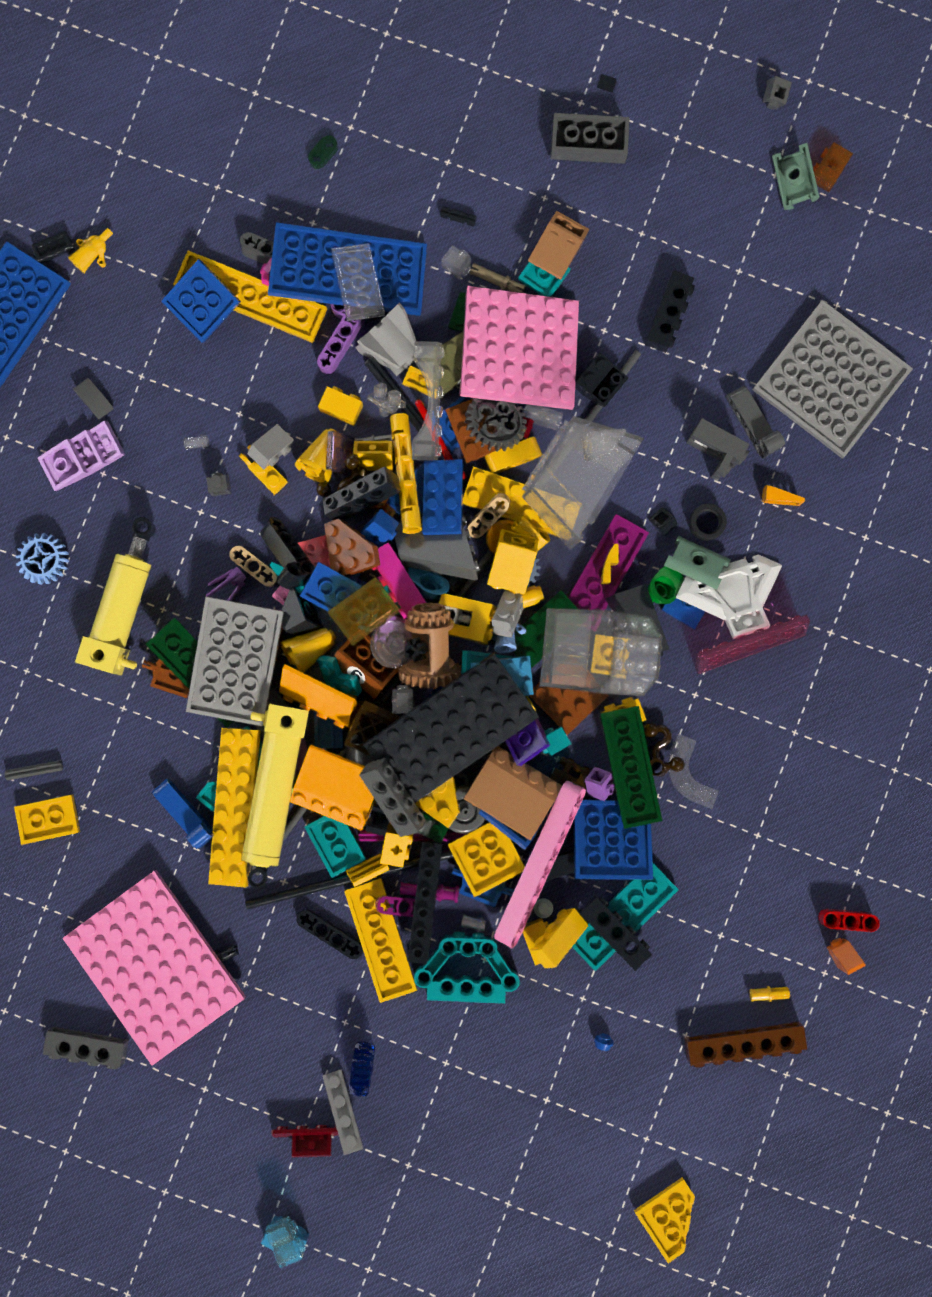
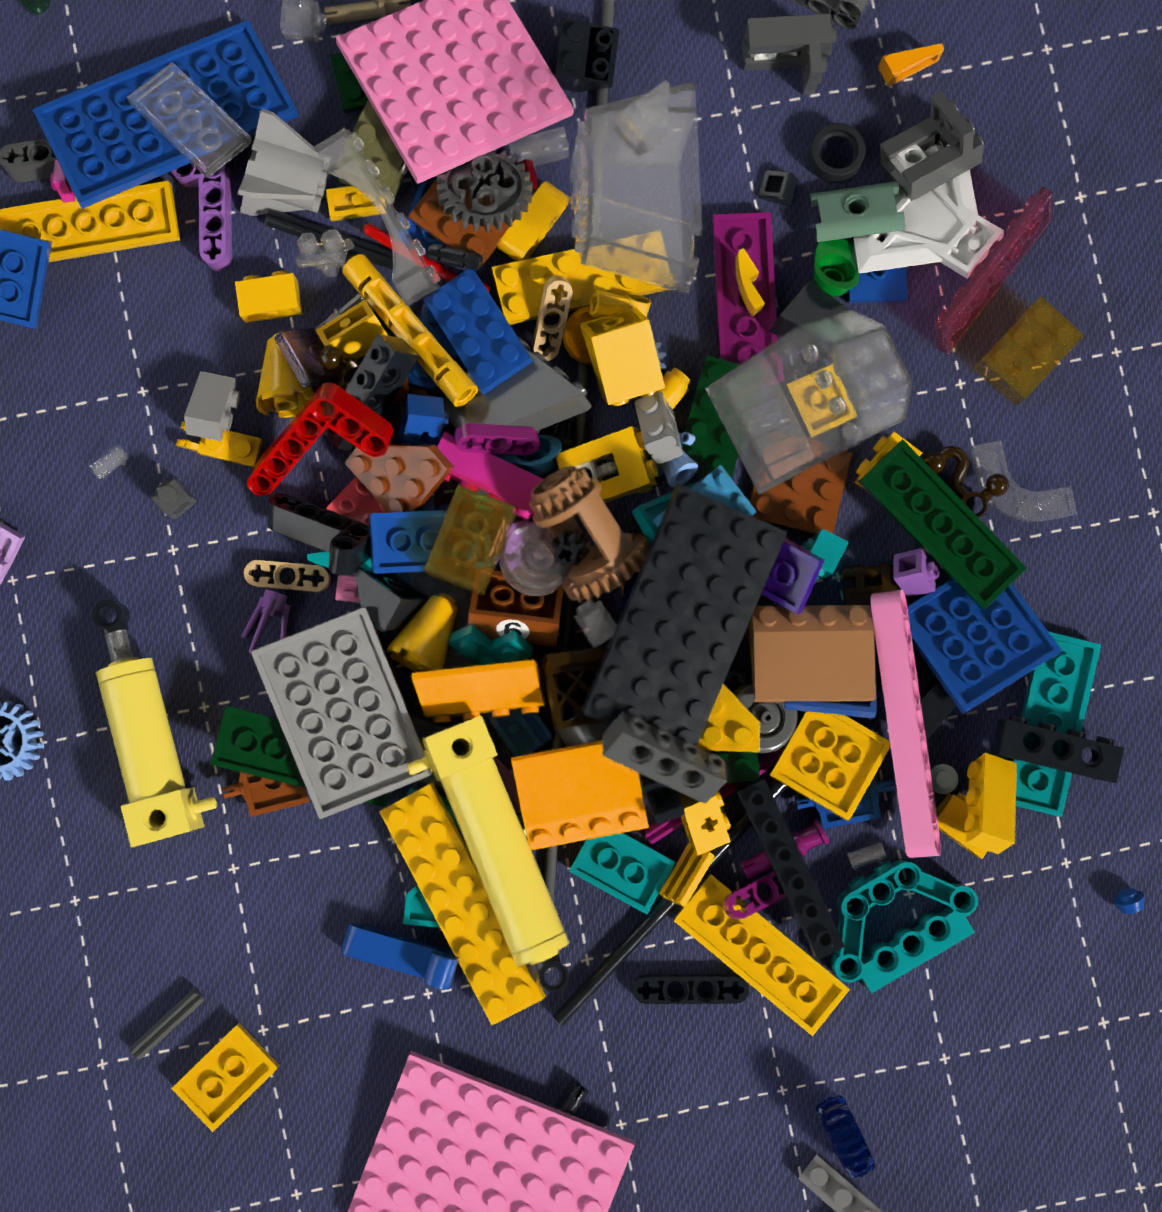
camera: 35 degrees left, 0 degrees up
(331, 490) = (302, 434): none -> red beam
(414, 564) = (479, 437): none -> magenta beam
(456, 448) = (455, 257): none -> black axle
(743, 700) = (1028, 351): none -> clear yellow brick
(766, 555) = (932, 150): none -> dark grey brick

